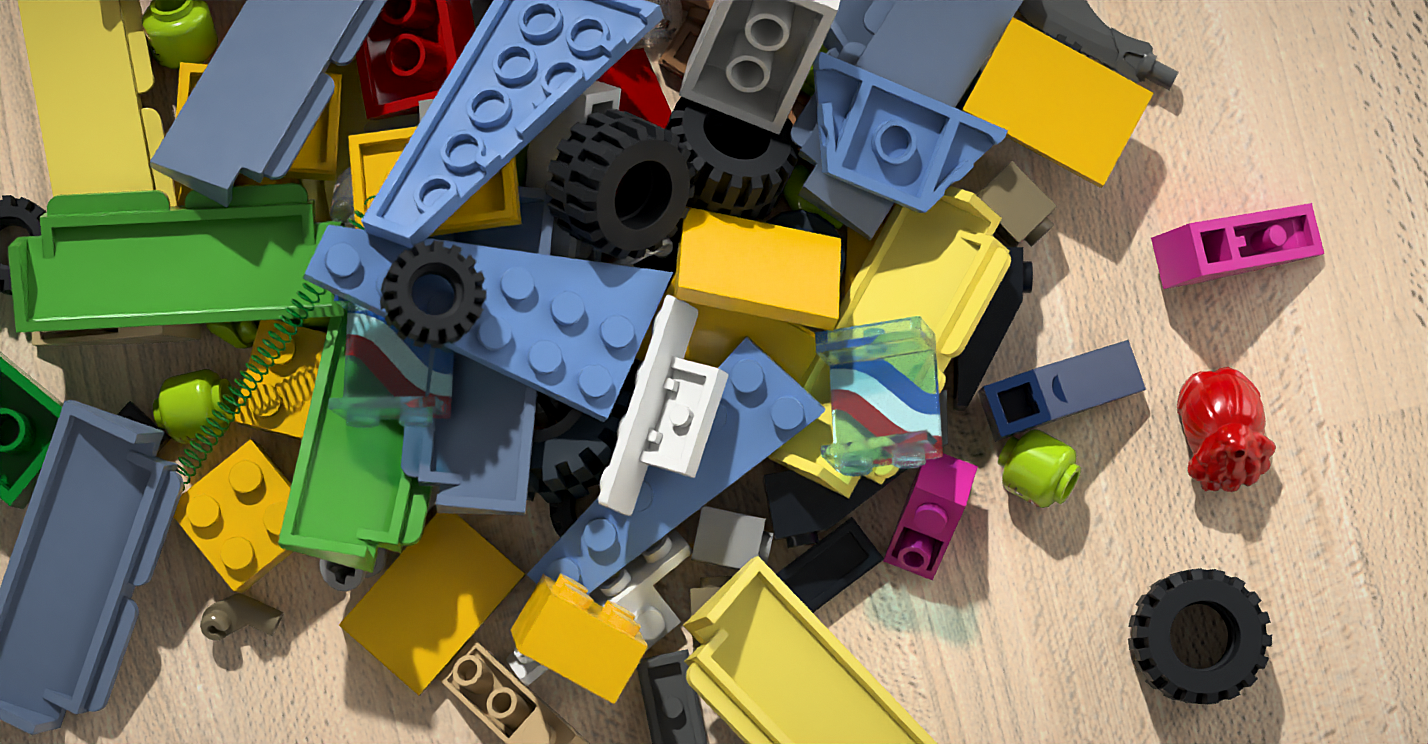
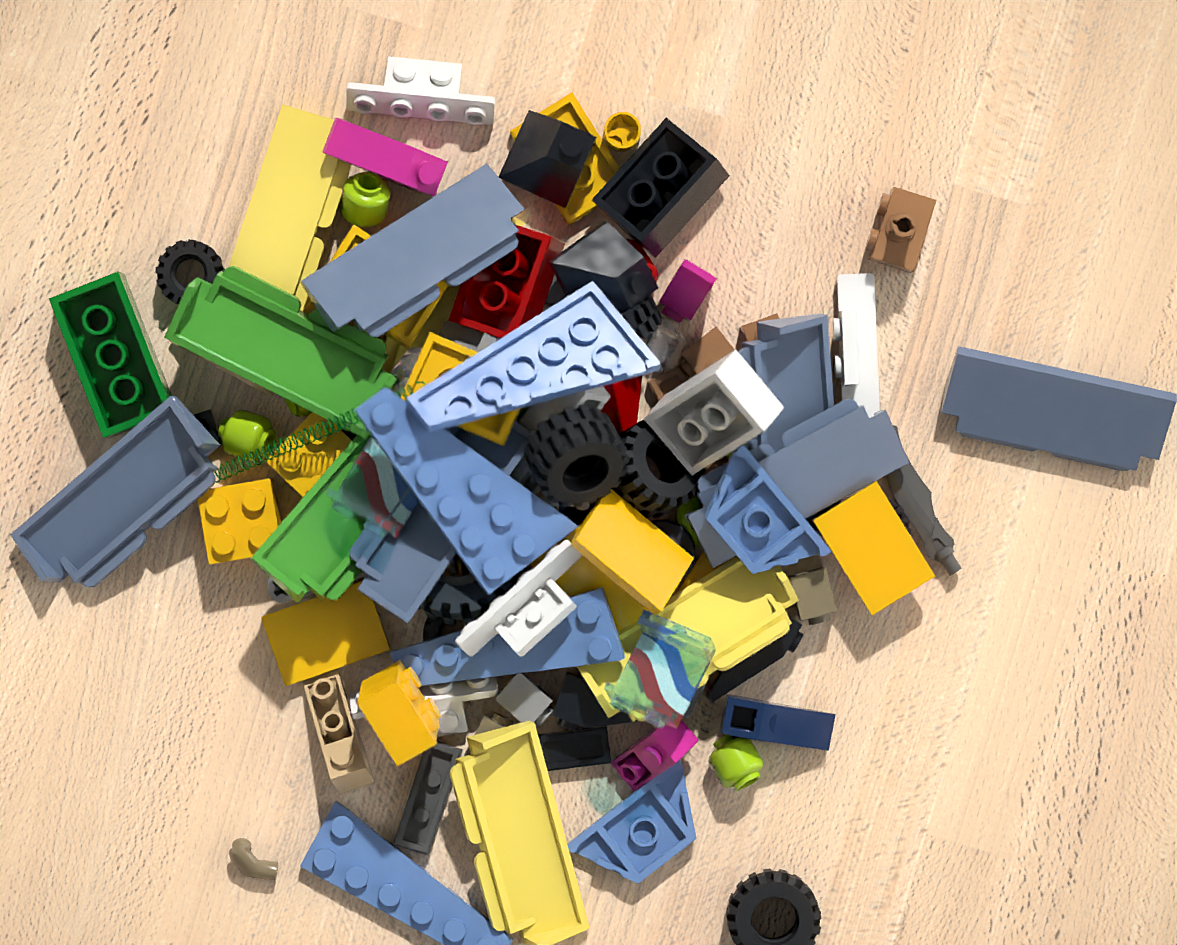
camera: 35 degrees right, 5 degrees up
(237, 612) = (203, 574): dark tan arm -> none
(438, 261) = (401, 466): black tyre -> none
(970, 619) = (642, 828): none -> medium blue wing
(1224, 429) = (862, 801): red hair -> none
(1236, 245) = (935, 695): dark pink slope -> none

